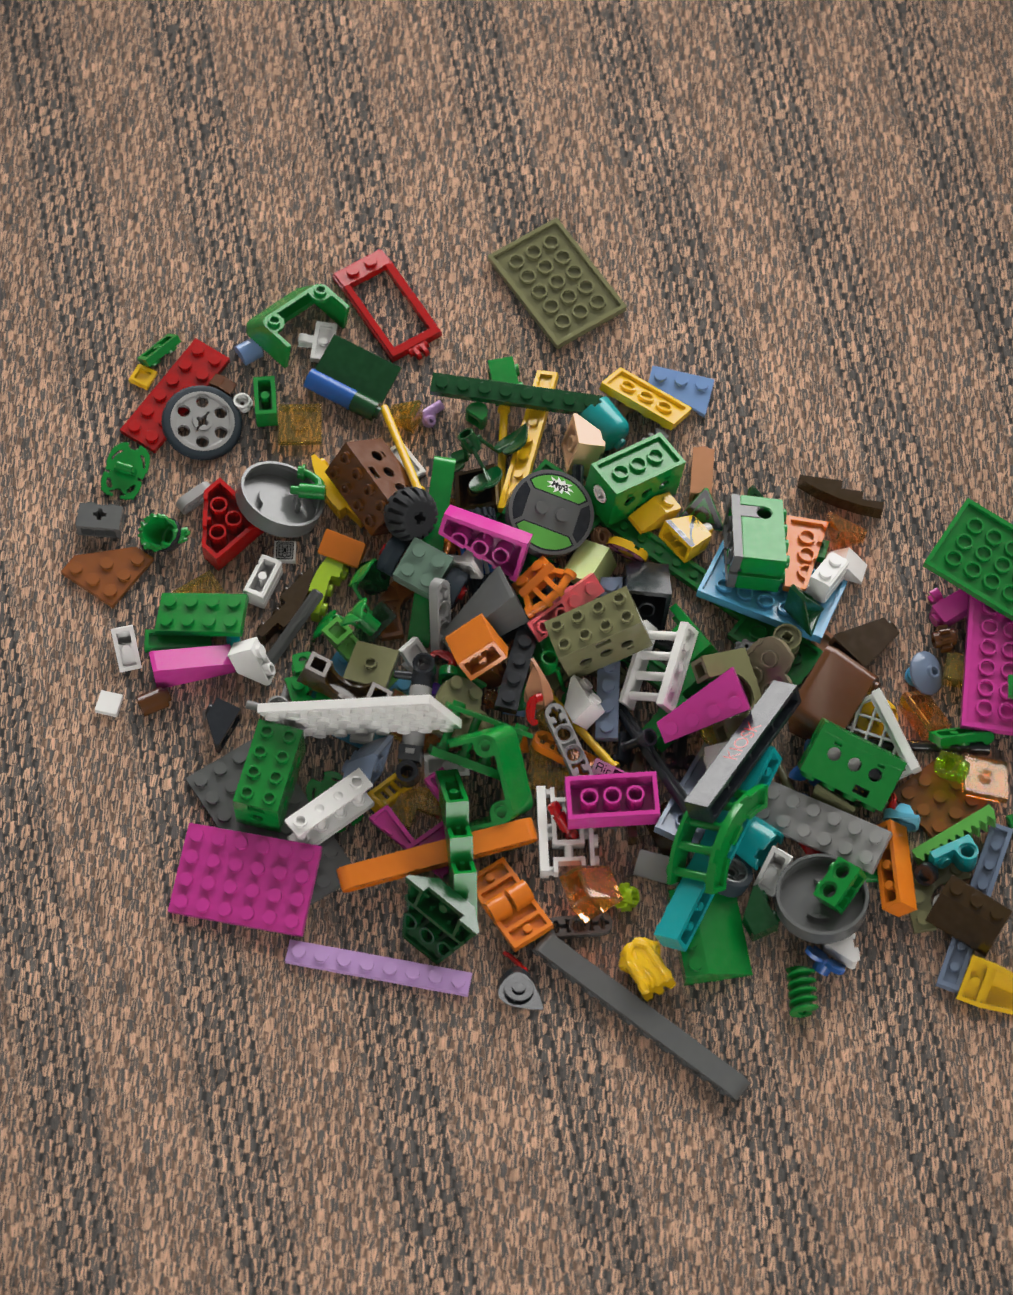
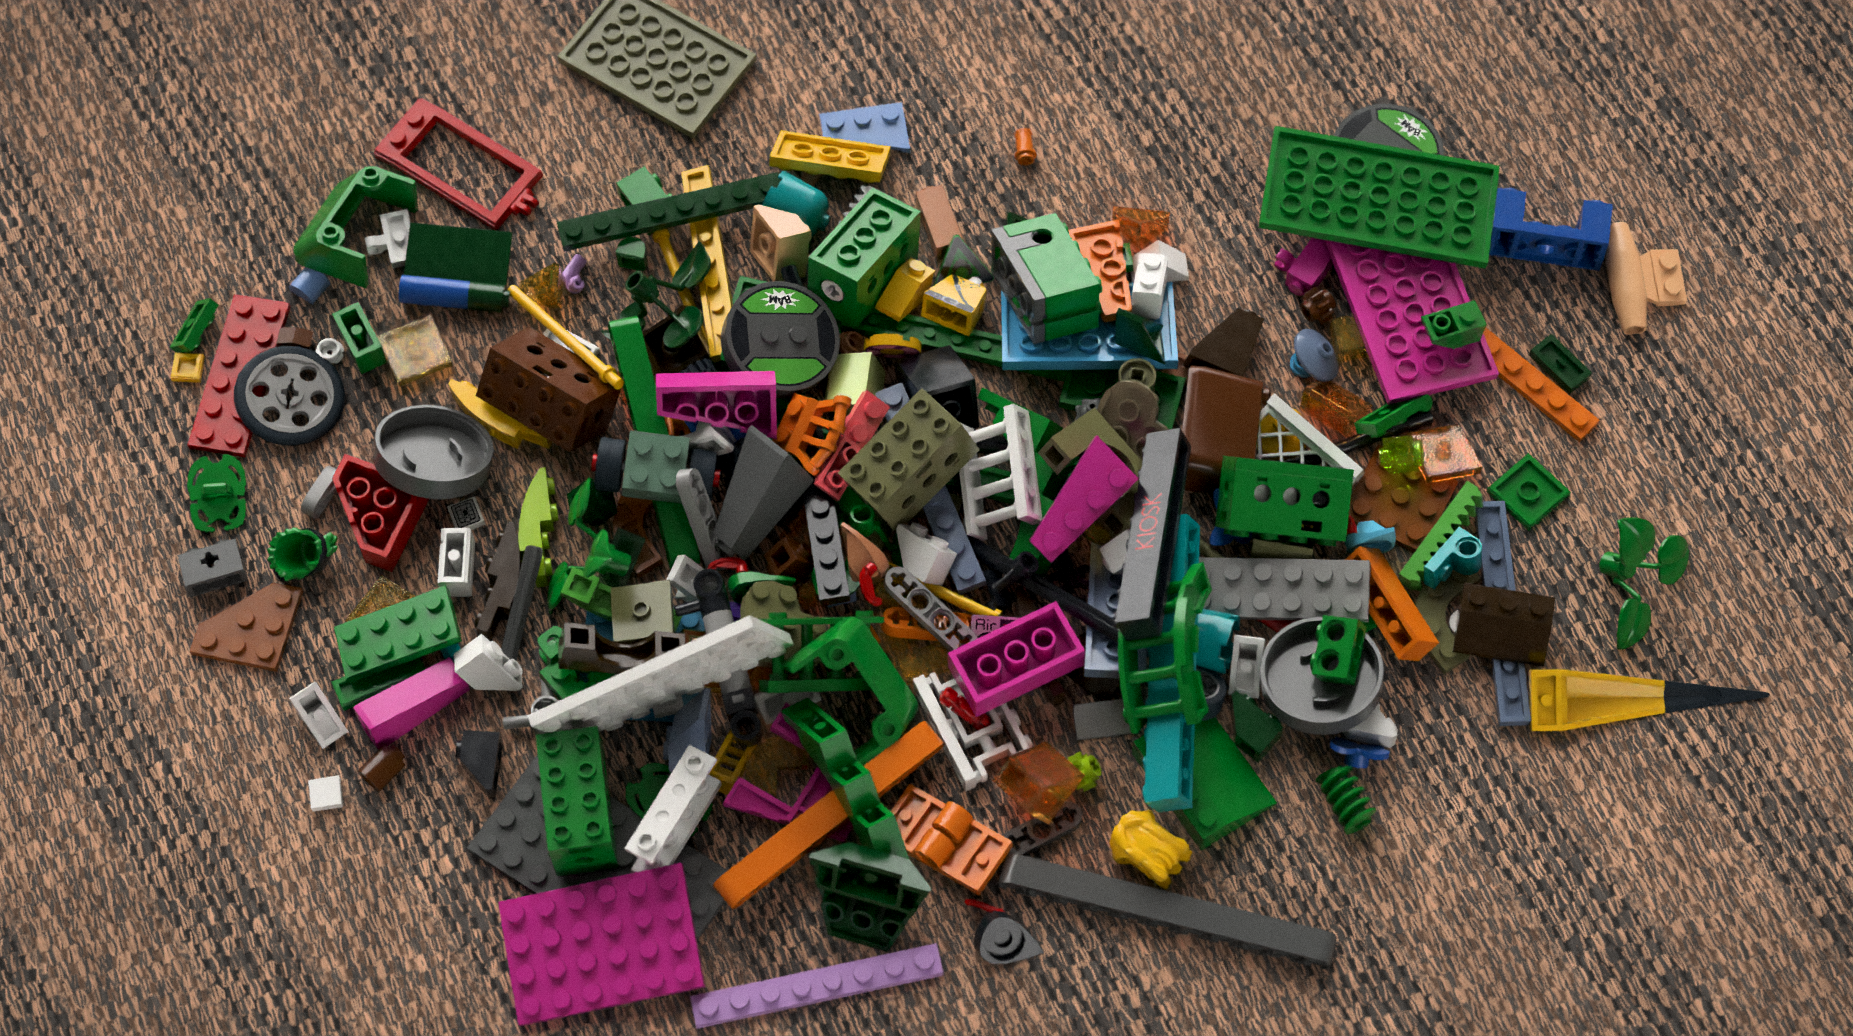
camera: 20 degrees left, 0 degrees up
(307, 490) = (465, 427): green plant -> none
(342, 548) = (540, 482): orange slope -> none
(410, 514) = (612, 404): black wheel -> none
(477, 647) = (767, 536): orange slope -> none
(786, 450) = (1025, 153): none -> orange pin
(831, 492) = (1107, 184): dark brown slope -> none
(926, 873) = (1429, 595): black tile -> none

